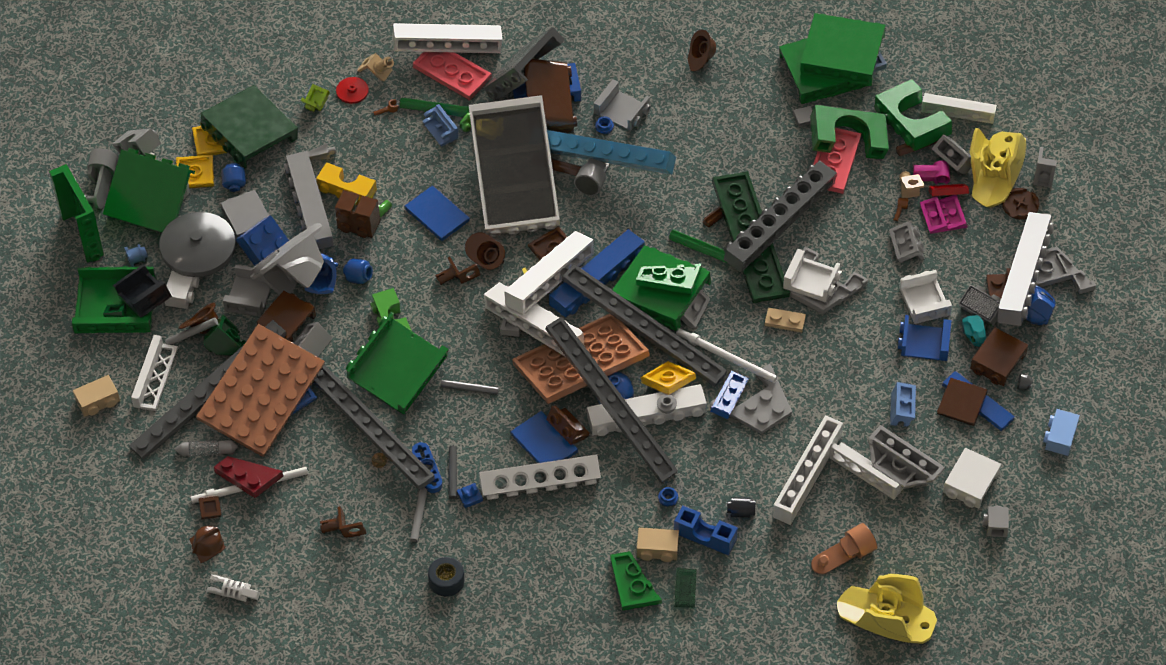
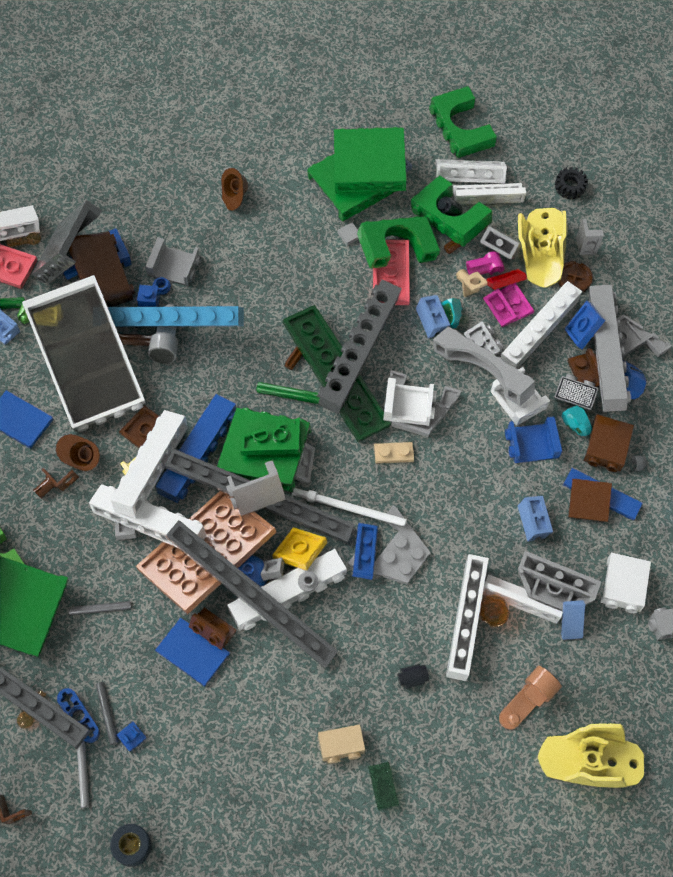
camera: 20 degrees left, 10 degrees up
(492, 57) = (32, 239): none -> clear orange bar
(588, 463) = (187, 695): white brick -> none
(589, 128) = (148, 296): none -> blue brick
(631, 584) = (327, 796): green wing -> none
(637, 388) = (272, 569): none -> light grey plate
(640, 315) = (258, 492): none -> light grey panel
(668, 491) = (338, 676): blue plate -> none
(692, 527) = (397, 718): blue arch -> none
(835, 468) = (494, 606): none -> clear orange hair
(862, 206) = (432, 315): none -> medium blue hinge
(876, 239) = (454, 346): none -> light grey arch
(881, 207) = (452, 309): none -> teal rock
(902, 204) = (468, 302): dark orange hand -> none
(907, 495) = (573, 619): none -> medium blue tile
(912, 110) = (449, 207): none -> black brick
(948, 83) = (471, 171): none -> white fence
(950, 53) = (461, 141): none -> green arch
(968, 239) = (541, 325): none -> white brick
(1009, 244) = (584, 324): none -> blue tile
(1048, 106) = (570, 191): none -> black tyre

